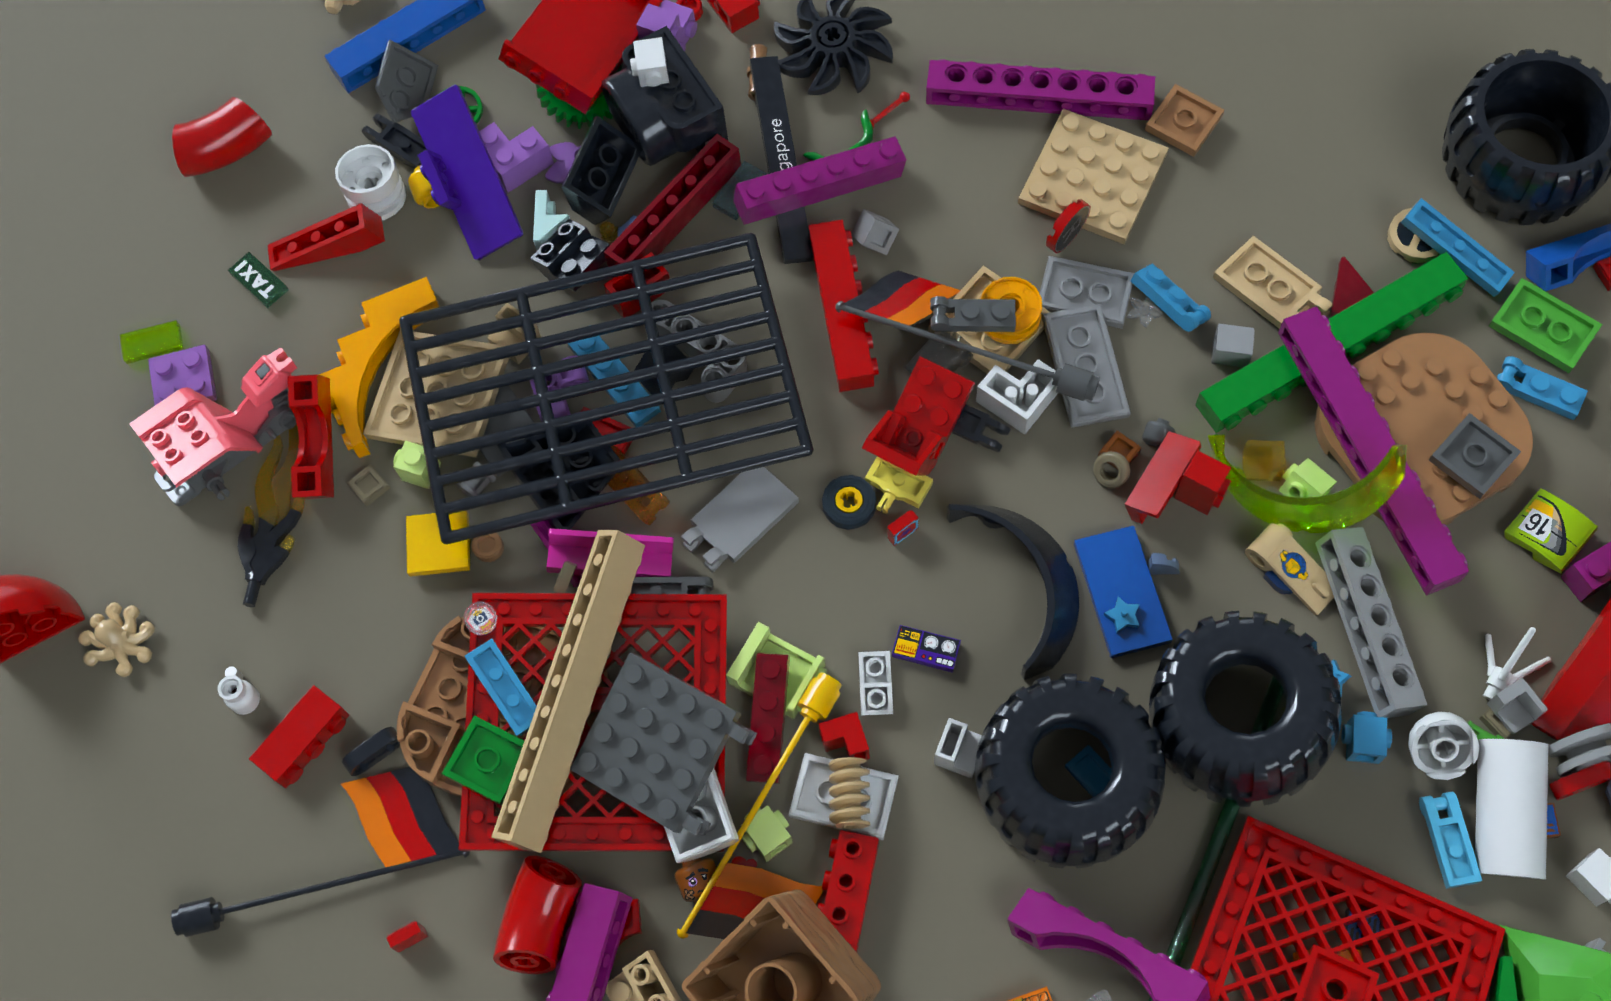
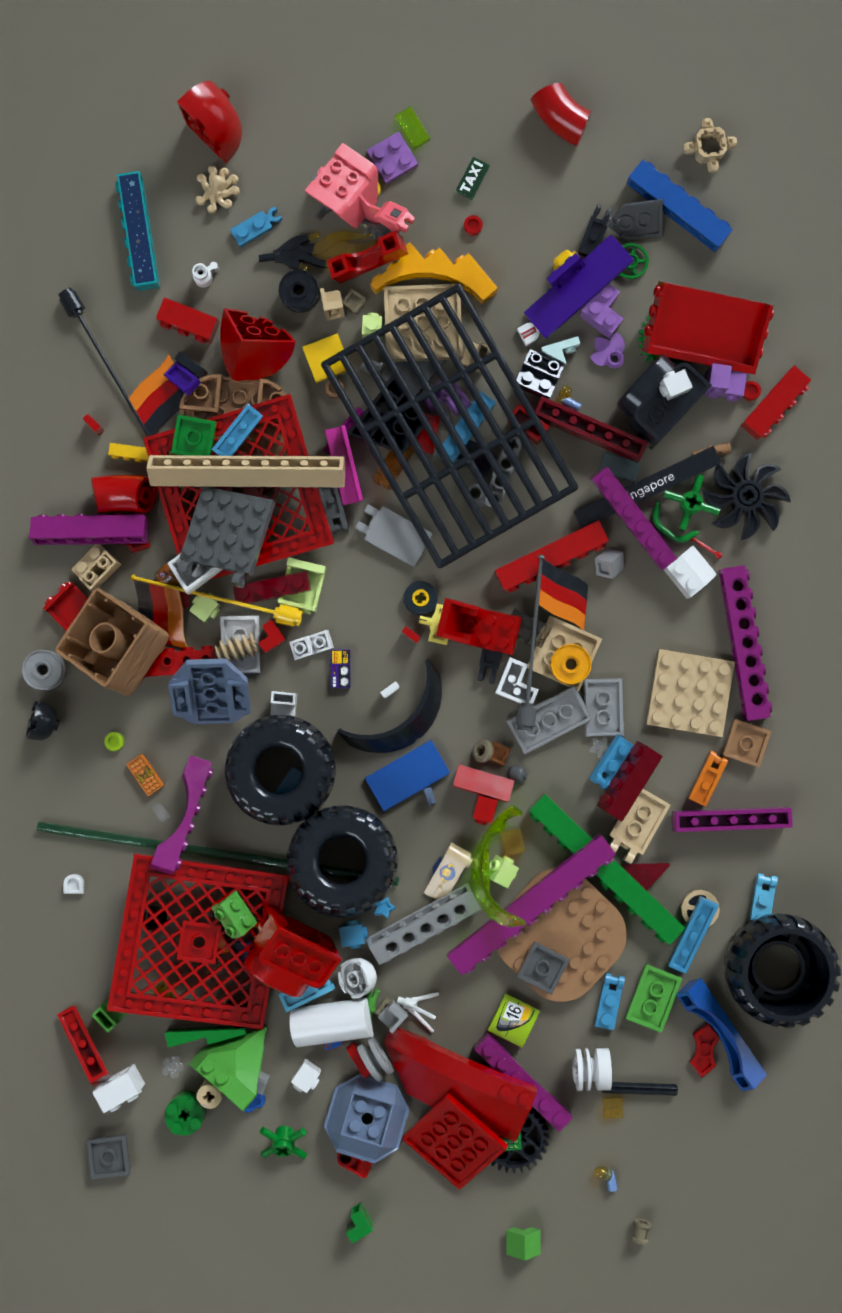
camera: 65 degrees right, 20 degrees up
(129, 776) = (138, 231): none -> dark blue brick
(199, 599) = (255, 227): none -> dark azure plate
(309, 544) = (294, 280): none -> black wheel
(324, 296) = (473, 225): none -> red tile
(330, 238) = (510, 212): red slope -> none
(360, 510) = (332, 304): none -> tan panel
(371, 178) = (556, 216): white wheel -> none
(378, 644) = (253, 346): none -> red brick
(387, 766) = (182, 378): none -> dark purple tile
(475, 886) = (128, 452): none -> yellow piece
(480, 618) = (275, 404): clear tile -> none
(506, 260) = (528, 333): none -> white tile
(565, 577) = (319, 444): dark tan tile -> none
(600, 171) = (601, 374): black slope -> none
(820, 108) = (684, 505): none -> green bar
(911, 850) = (209, 692): none -> sand blue piece
(922, 135) = (690, 572): none -> white slope
(973, 315) = (554, 643): dark grey plate -> none
(980, 579) = (390, 689): none -> white tile
(1068, 225) = (641, 685): tile -> none
(1123, 615) = (390, 779): dark azure piece -> none
(1206, 276) = (629, 780): none -> dark red brick
(1225, 179) = (707, 779): none -> orange plate
(1232, 345) = (587, 807): light grey panel -> none
(1293, 159) = (732, 819): none -> magenta brick
(1302, 915) = (234, 915): none -> bright green bracket
(1390, 833) = (291, 955): none -> red brick
(1418, 152) = (763, 899): none -> medium azure plate

